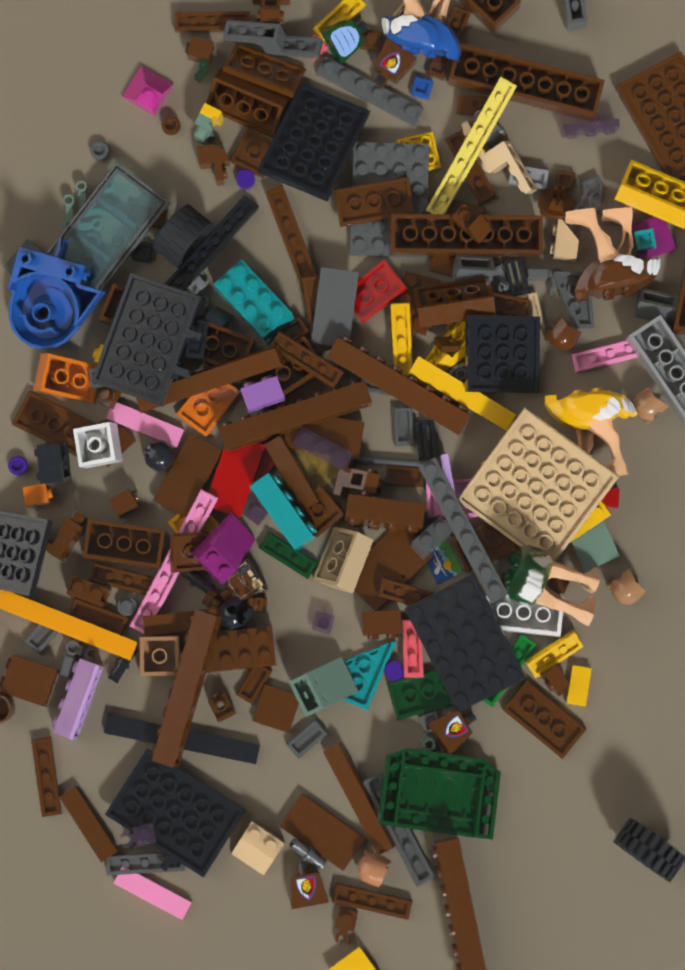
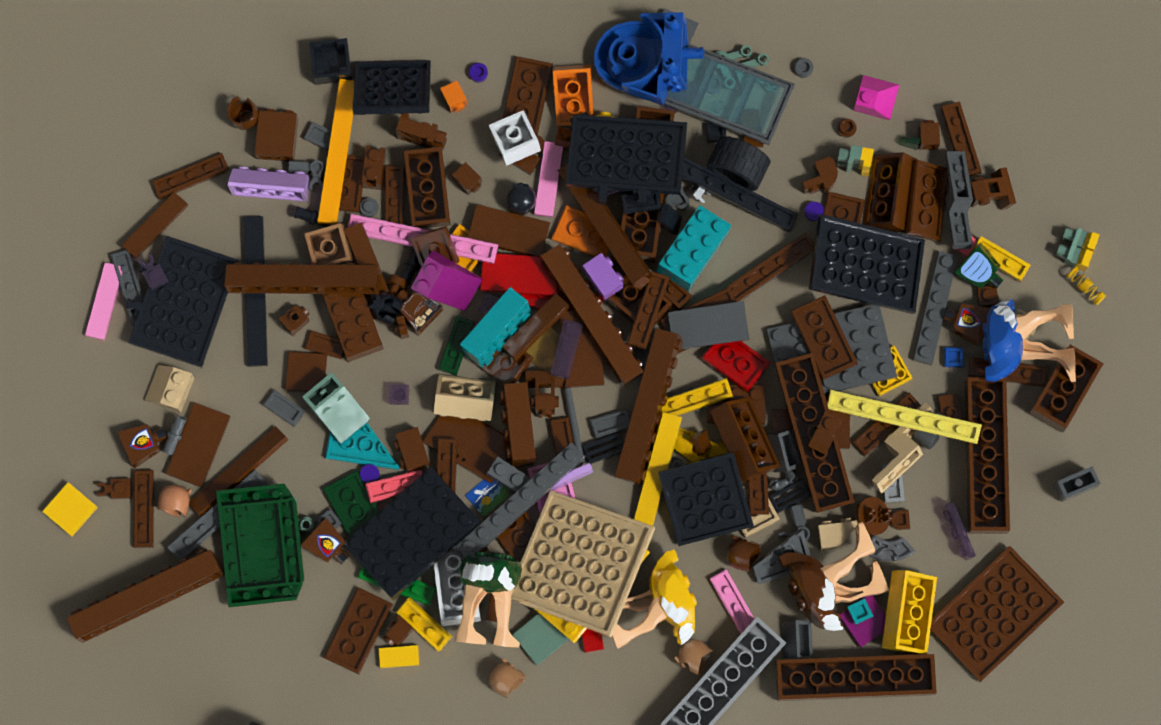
camera: 75 degrees right, 5 degrees down
(53, 462) = (487, 101): black container -> none

